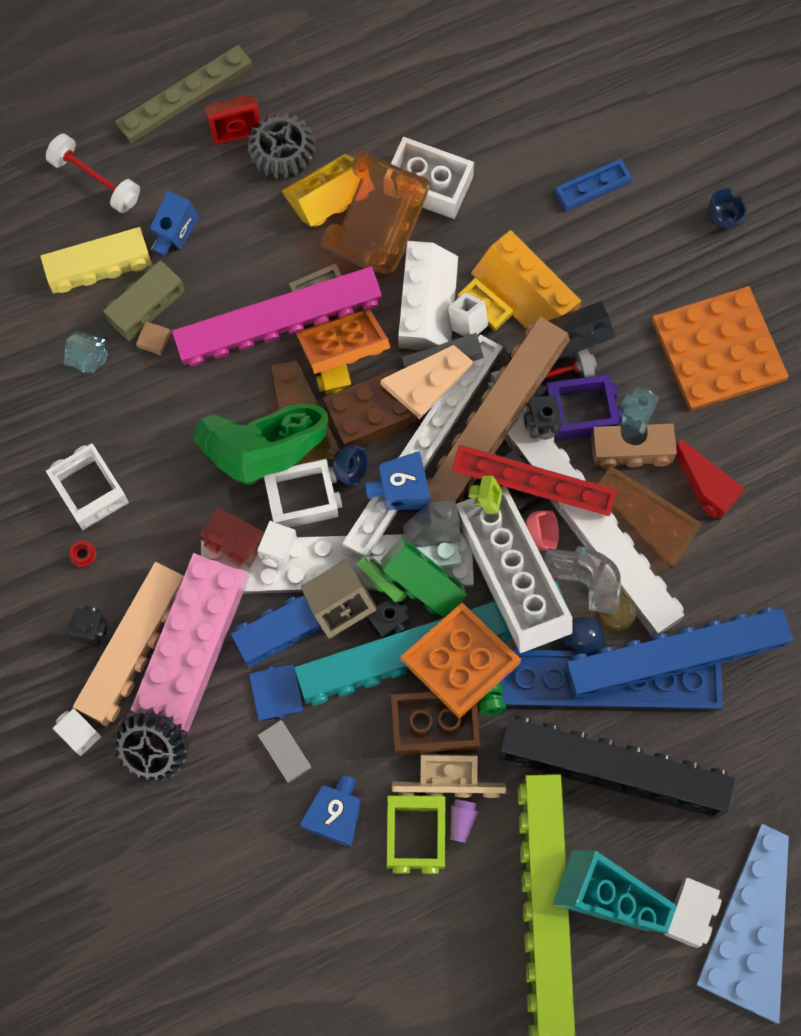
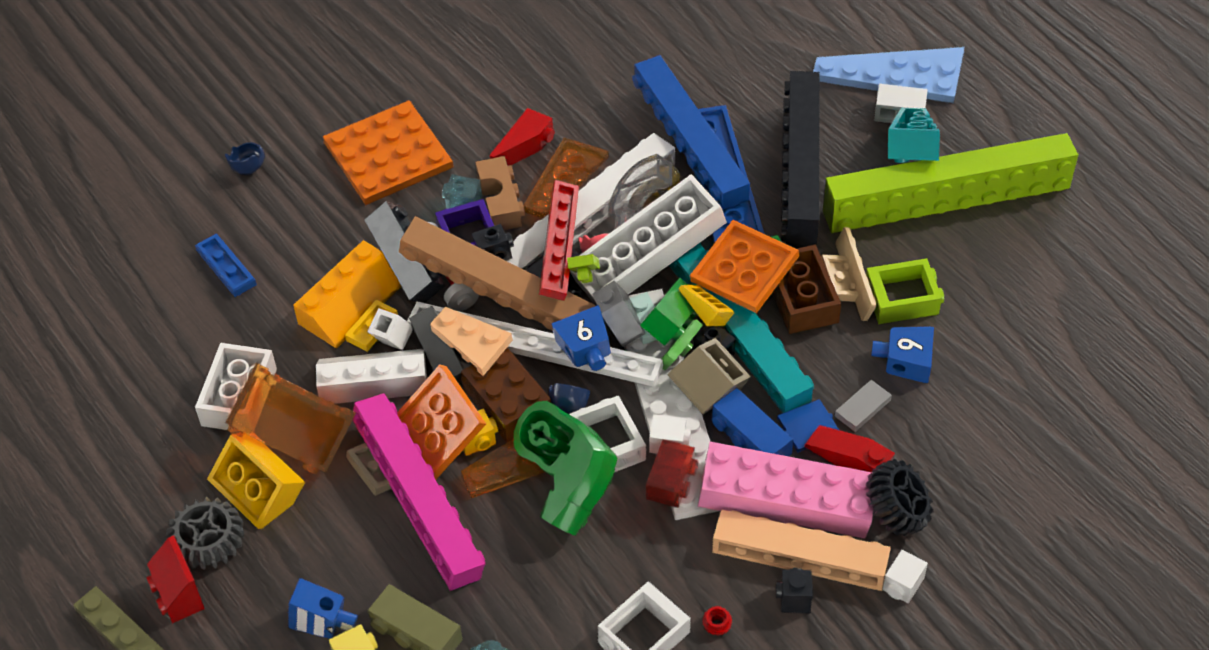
camera: 100 degrees left, 20 degrees down
(153, 338) = (457, 609): medium nougat tile -> none
(225, 718) = (848, 449): none -> red slope
(420, 602) = (707, 307): none -> yellow slope
(462, 819) = (876, 258): medium lavender cone -> none

